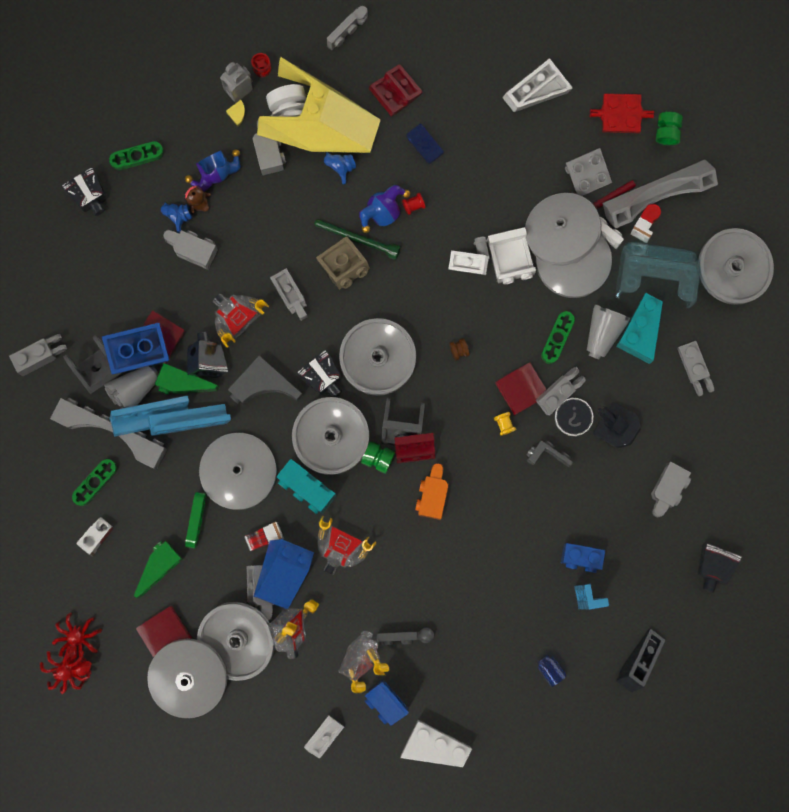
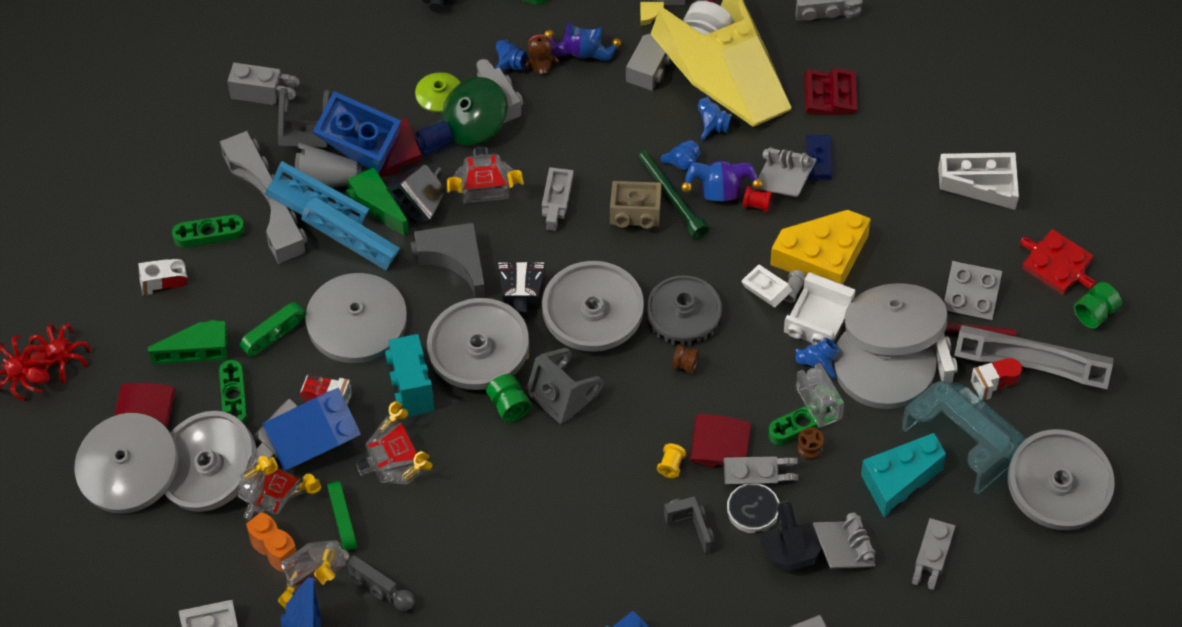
camera: 40 degrees right, 25 degrees down
(154, 280) = (434, 89): none -> lime dish
(179, 309) = (434, 136): none -> clear blue brick
(201, 270) = (483, 114): none -> dark green dish
(202, 567) = (226, 386): none -> green beam
(313, 659) = (270, 540): none -> orange brick
(344, 610) = (341, 516): none -> green beam
(345, 207) = (682, 155): none -> blue animal
(415, 448) = (554, 412): dark red slope -> none
(416, 172) = (785, 171): none -> light grey hinge
(430, 329) = (684, 309): none -> dark grey wheel
(433, 495) = (534, 473): orange hinge -> none
(481, 210) = (822, 245): none -> yellow brick
(535, 287) = (823, 352): none -> blue animal
(561, 317) = (818, 393): none -> clear brick
(577, 347) = (809, 437): none -> reddish brown wheel
(604, 330) = (858, 441): light grey cone -> none
(646, 402) = (845, 543): none -> light grey hinge

